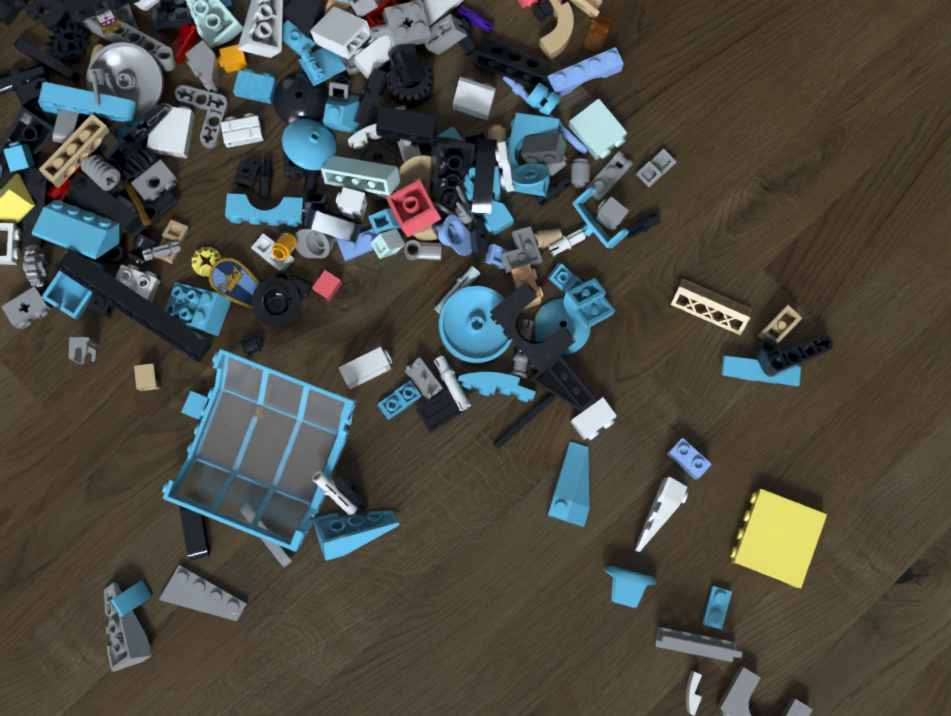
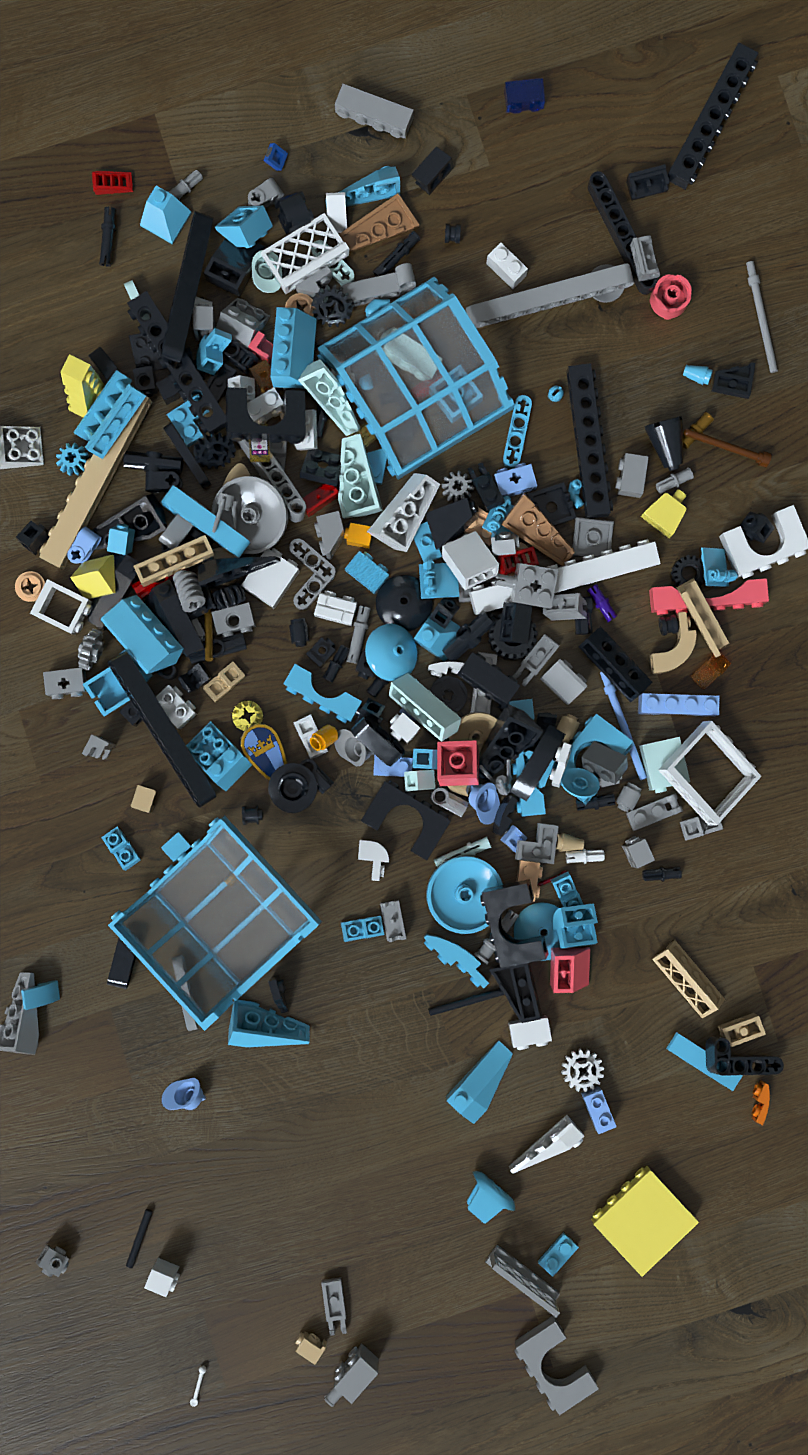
camera: 25 degrees right, 5 degrees up
(30, 32) = (184, 422): none -> medium azure plate
(146, 432) = (121, 848): none -> medium azure slope
(161, 250) = (210, 688): light grey axle -> none
(199, 594) = (102, 1018): light grey wing -> none
(219, 166) = (299, 632): none -> black brick
(273, 144) = (358, 634): none -> light grey pin
(307, 626) = (183, 1095): none -> light blue piece
(322, 480) = (257, 975): white pin -> none
(327, 285) = (346, 792): coral panel -> none
(366, 367) = (345, 887): white window -> none
(369, 271) = (433, 823): none -> black arch
(379, 326) = (373, 852): none -> white brick
(438, 411) = (393, 956): black plate -> none
(441, 91) = (537, 658): none -> light grey hinge
(454, 387) = (417, 937): white pin -> none
(537, 96) = (621, 710): medium azure wheel -> none
(591, 223) = (616, 851): medium azure piece -> none
(601, 345) = (569, 969): none -> coral slope
(630, 140) = (725, 743): none -> white window
(660, 418) = (577, 1076): none -> white gear
(692, 699) = (496, 1325): white slope -> none
(826, 376) = (762, 1095): none -> orange slope

